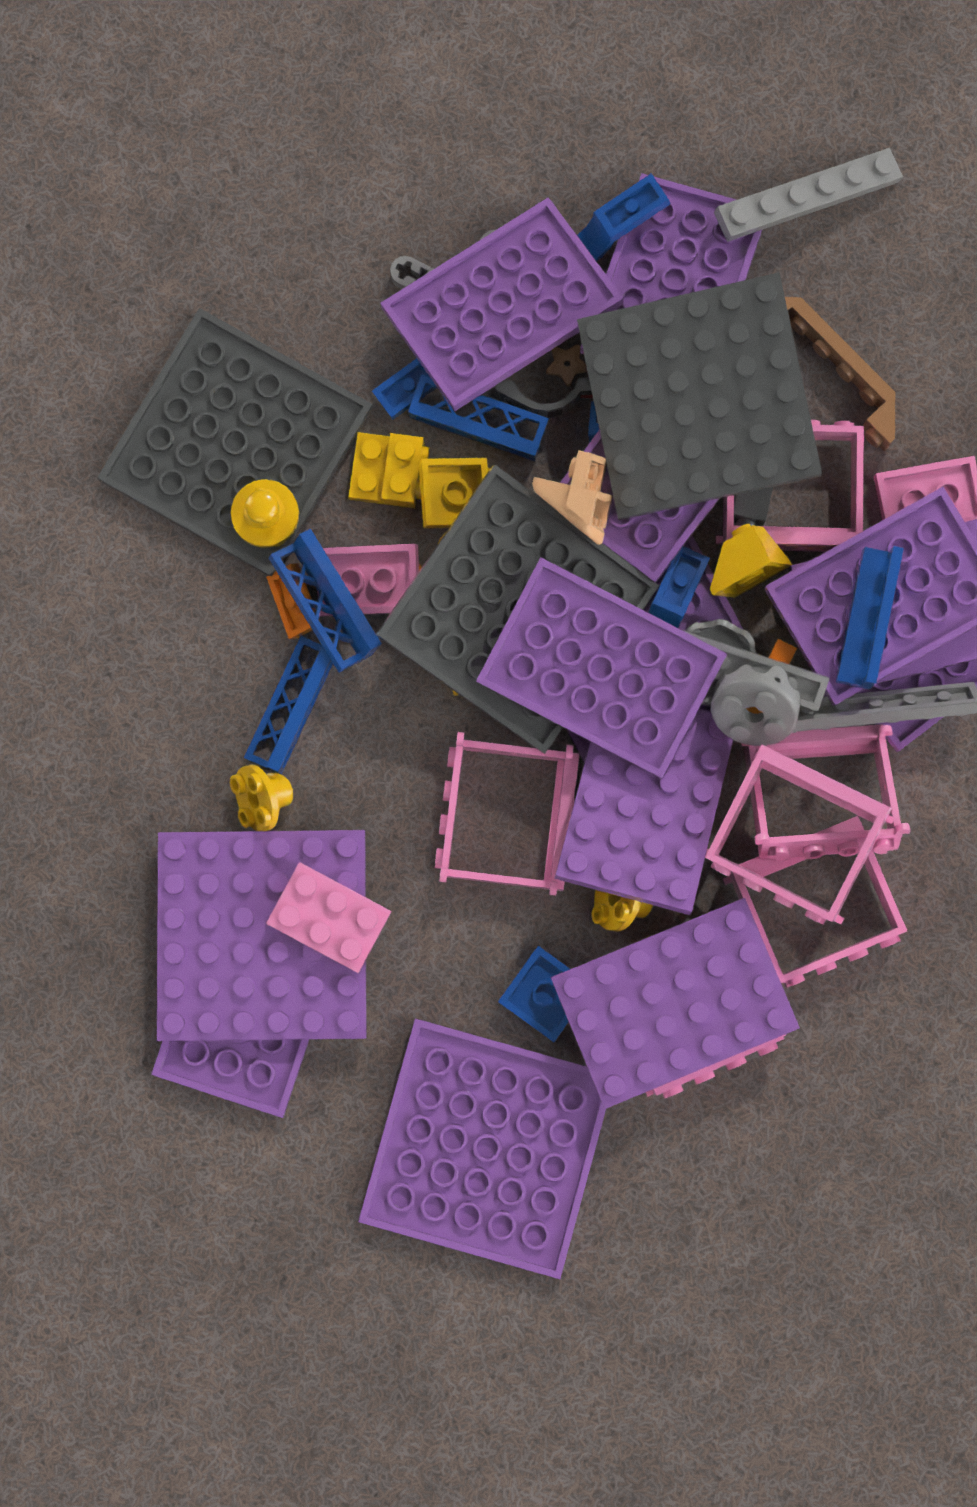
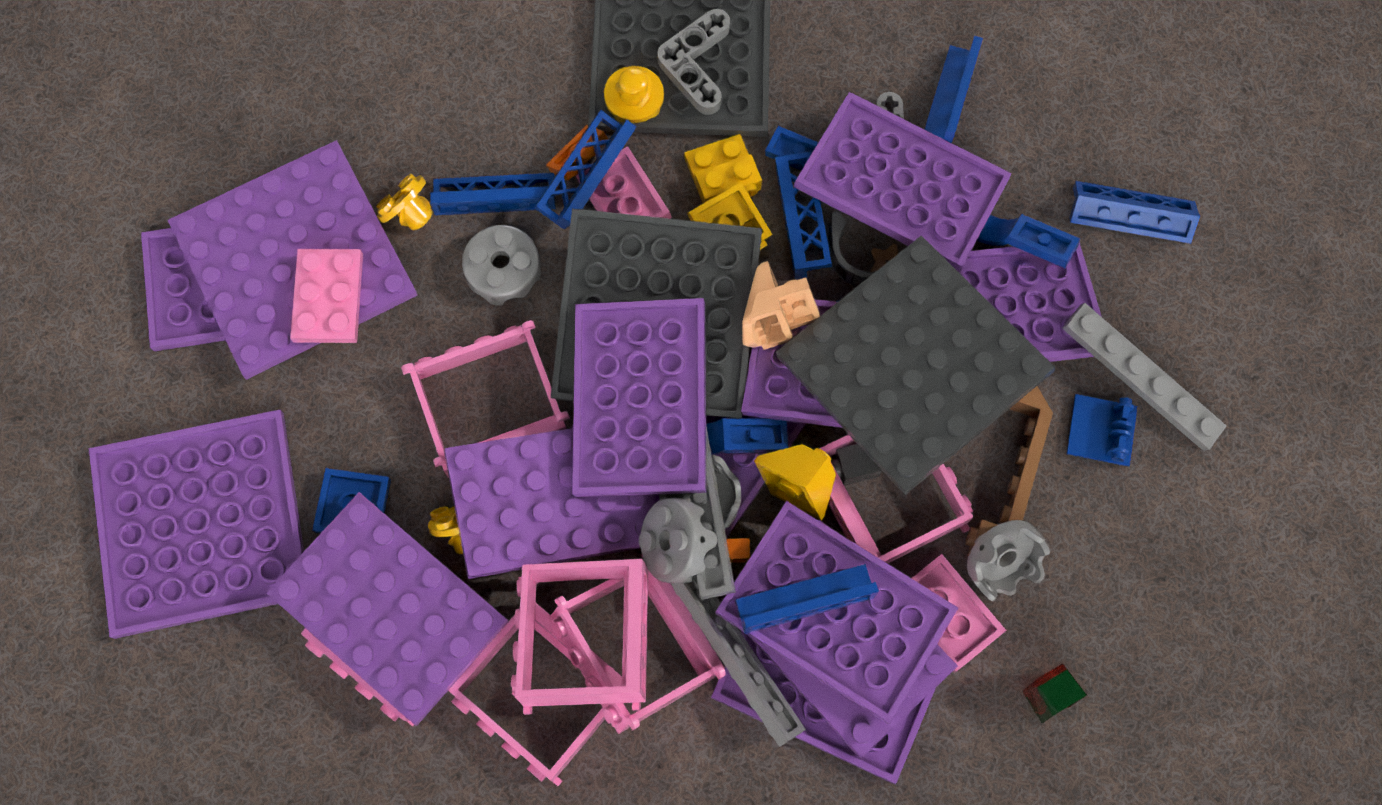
camera: 60 degrees right, 10 degrees down
(258, 444) = (685, 59): none -> light grey beam
(381, 757) = (504, 283): none -> light grey plate
(427, 202) = (952, 90): none -> blue fence
(643, 104) = (1134, 212): none -> blue fence
(833, 261) = (1102, 429): none -> blue hinge
(911, 417) = (1022, 558): none -> light grey plate

